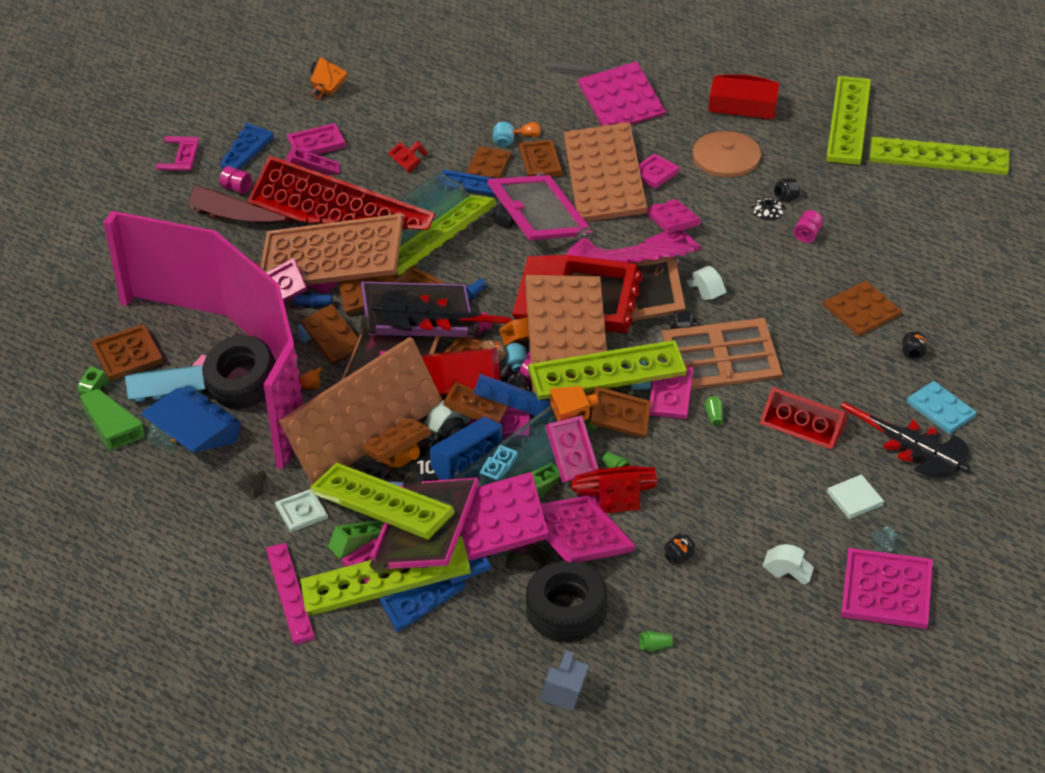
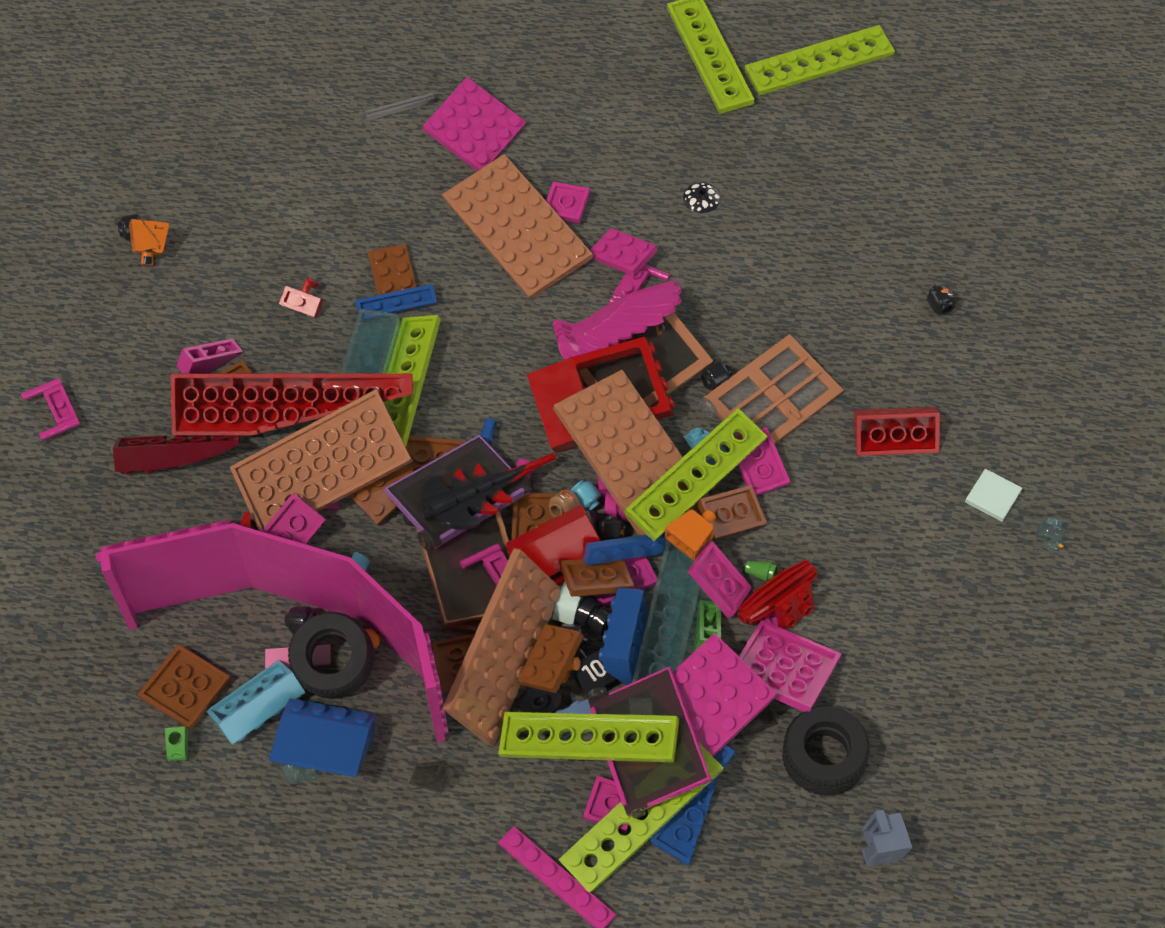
camera: 30 degrees left, 15 degrees up
(111, 420) = (230, 778): bright green slope -> none
(235, 180) = (139, 415): dark pink wheel -> none
(248, 144) = (119, 364): blue wing -> none
(301, 510) = (500, 780): light aqua tile -> none
(314, 300) = (335, 525): blue pin -> none
(318, 139) = (190, 322): dark pink plate -> none
(330, 334) = (387, 560): dark orange plate -> none
(353, 536) = (579, 786): bright green slope -> none
(499, 464) = (668, 634): medium azure slope -> none
(502, 216) = (457, 327): black head -> none
(503, 134) = (384, 225): medium azure head -> none
(515, 331) = (569, 465): orange torso -> none
(531, 129) = (404, 206): orange piece -> none
(540, 157) = (441, 240): dark orange plate -> none
(540, 207) = (488, 303): door -> none
(654, 641) = (926, 747): bright green cone -> none
(679, 549) = (883, 637): black head -> none
(708, 282) = (710, 316): light aqua brick -> none
(714, 409) = (811, 463): bright green cone -> none
(726, 154) = (619, 148): nougat dish -> none
(744, 96) = (595, 69): red piece -> none
(787, 189) = (708, 167): black head -> none
(788, 559) = (986, 600): light aqua brick -> none
(808, 226) = (758, 204): dark pink wheel -> none
(862, 308) = (864, 276): dark orange plate -> none
(887, 588) = (1084, 581): dark pink plate -> none
(940, 458) = (1041, 412): black animal -> none
(941, 407) = (1004, 356): medium azure plate -> none

